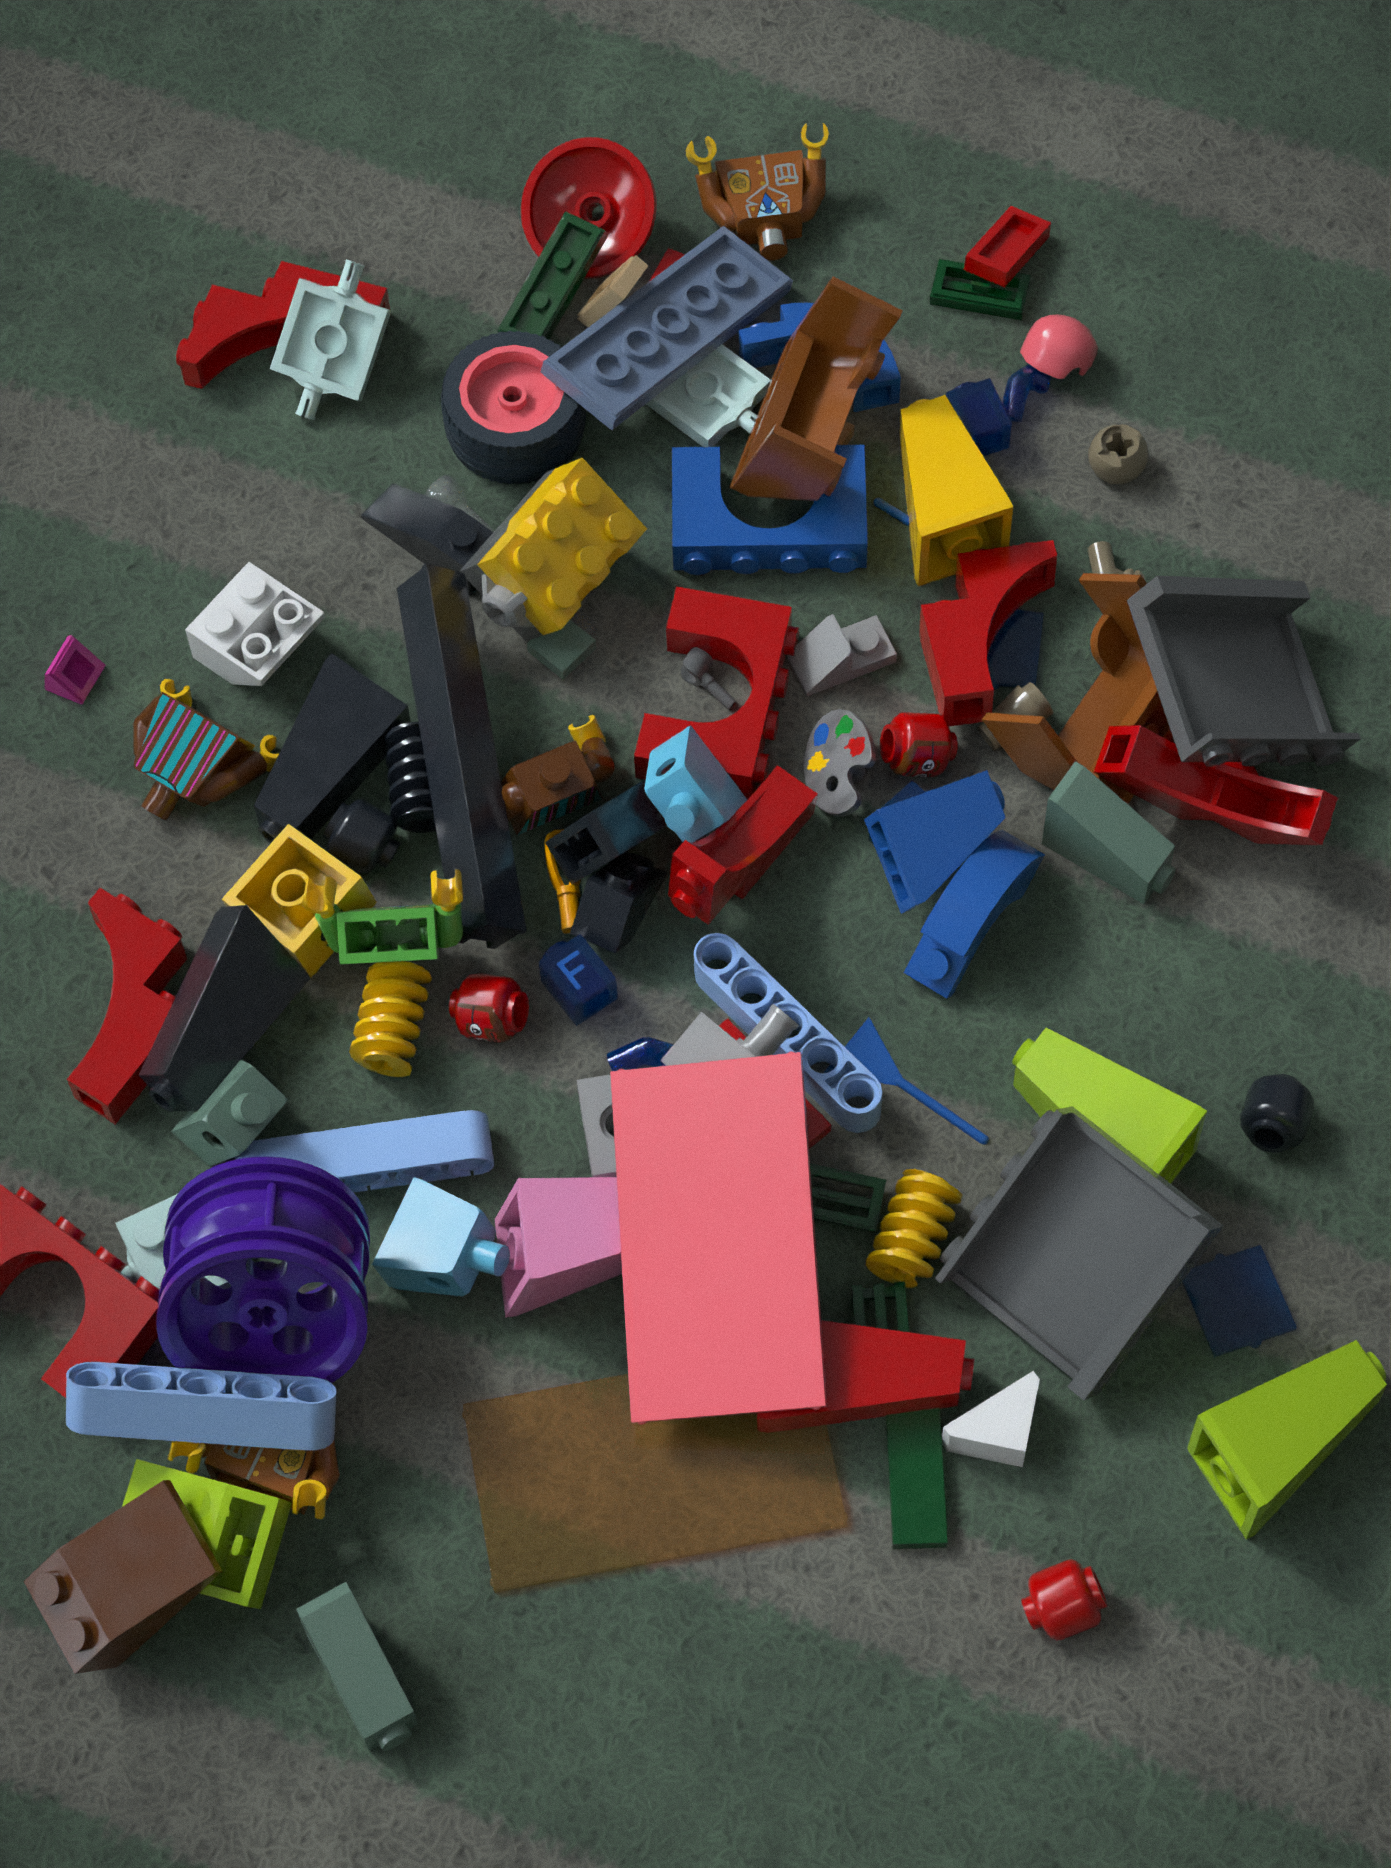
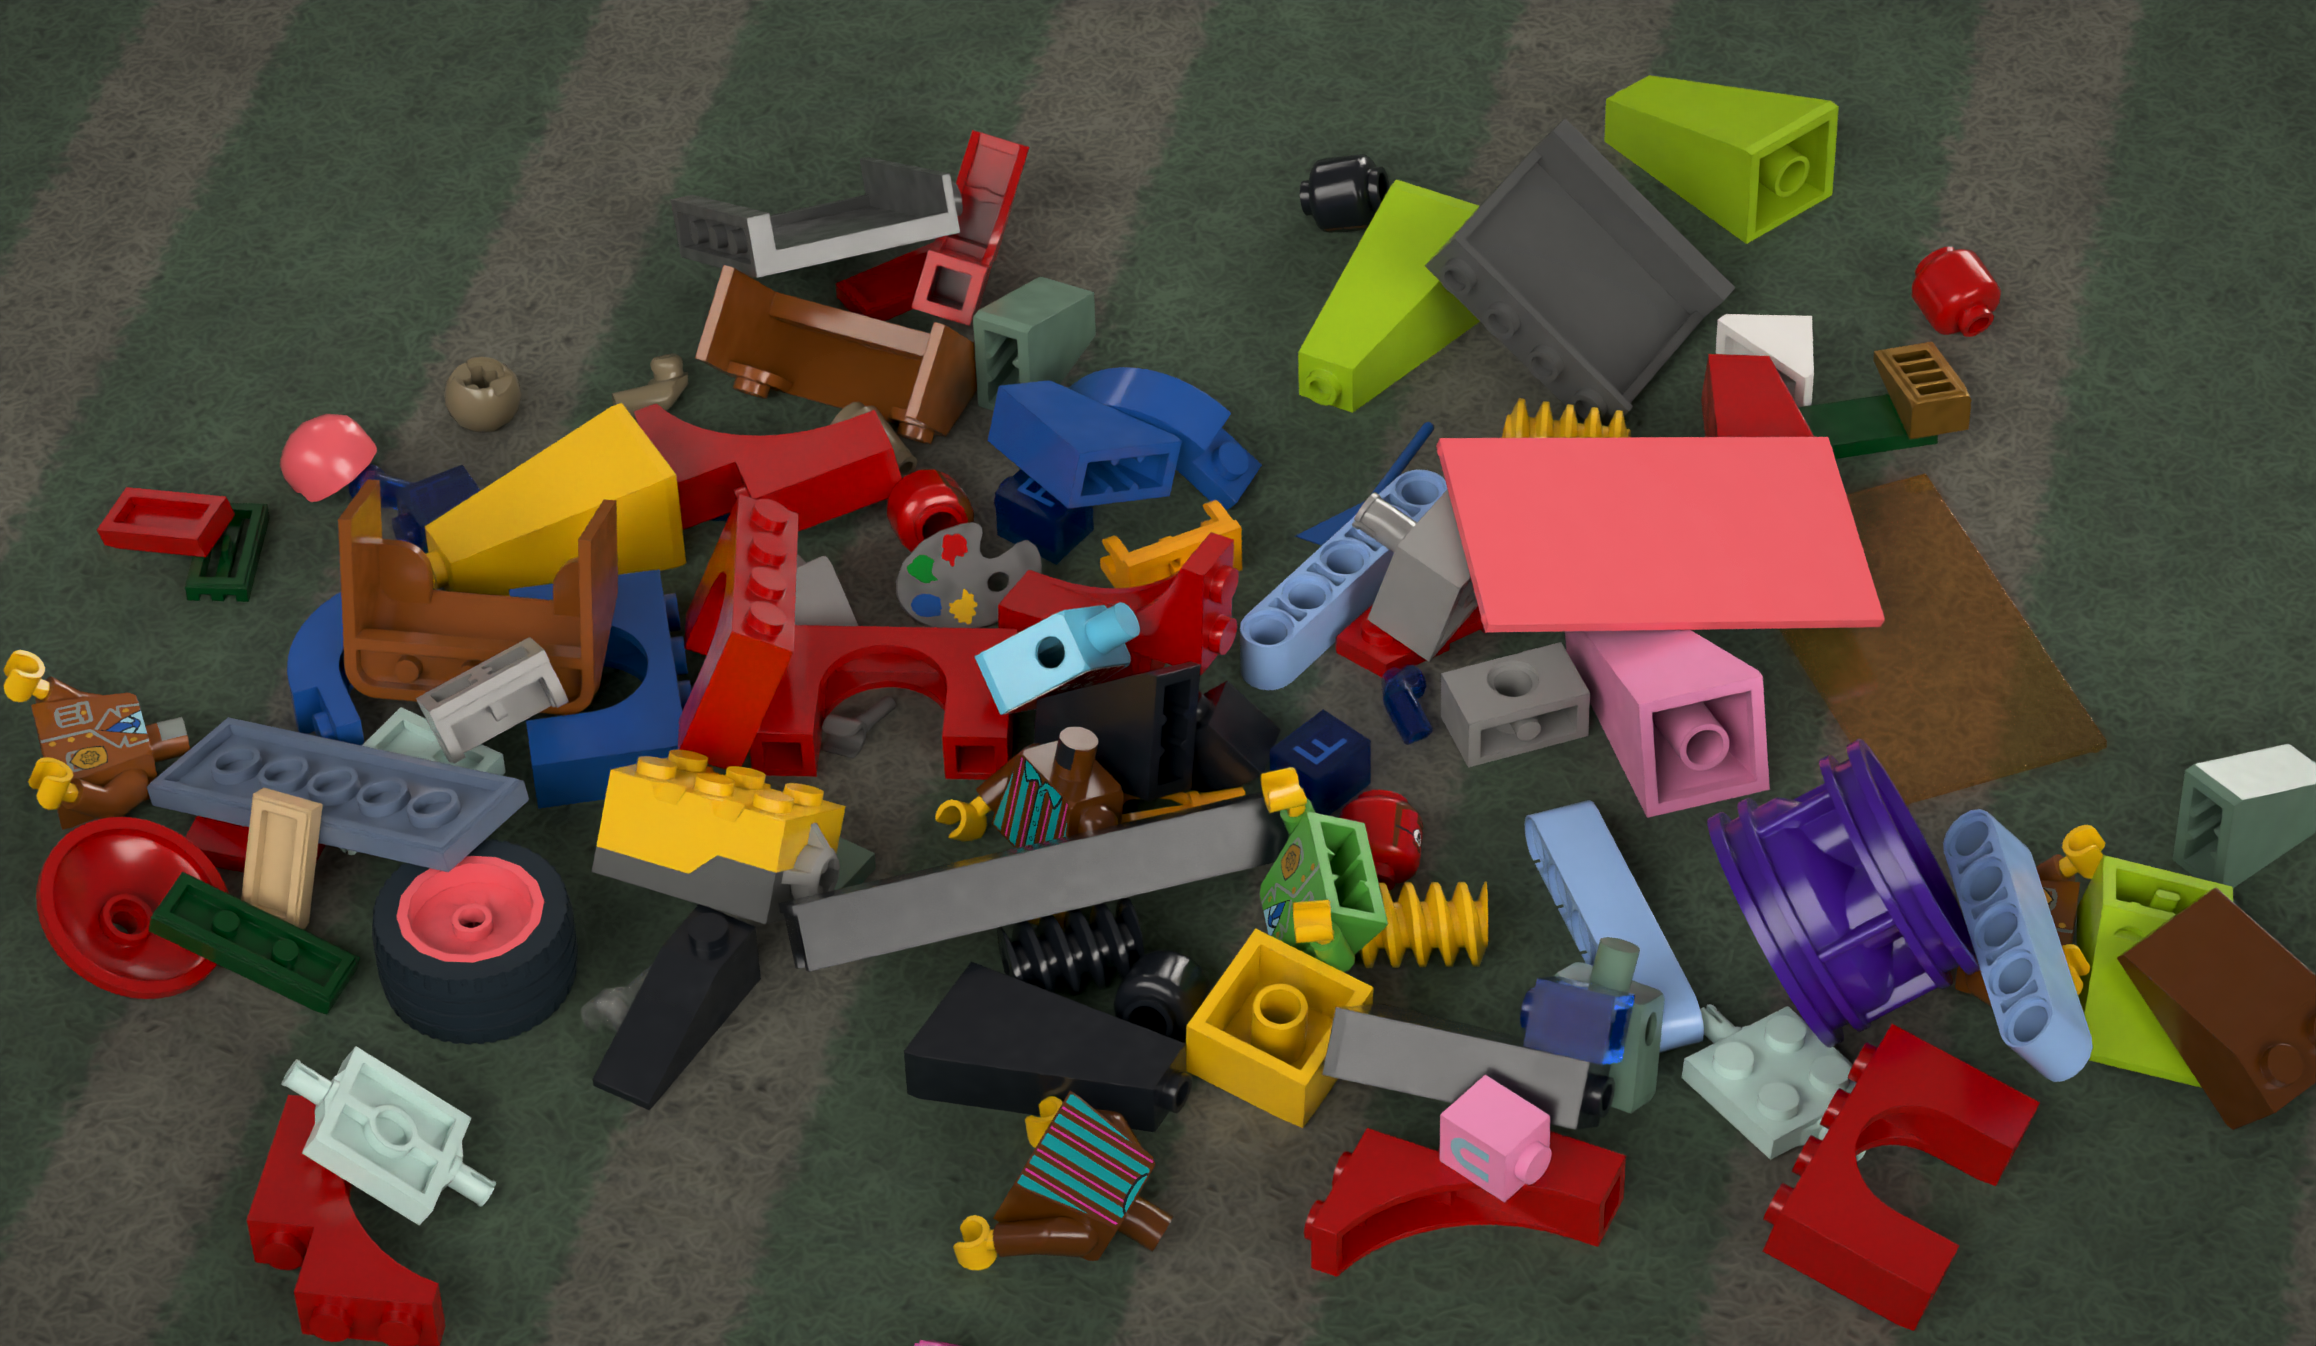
camera: 100 degrees left, 20 degrees down
(120, 1006) = (1495, 1138): none -> bright pink brick
(200, 1071) = (1577, 1019): none -> clear blue brick
(251, 627) = (871, 1154): white slope -> none
(438, 1244) = (1677, 837): medium azure torso -> none
(723, 410) = (491, 698): none -> light grey hinge
(805, 579) = (744, 628): none -> red arch
(845, 913) = (1170, 553): none -> light orange hinge
(917, 1554) = (1924, 390): none -> pearl gold slope

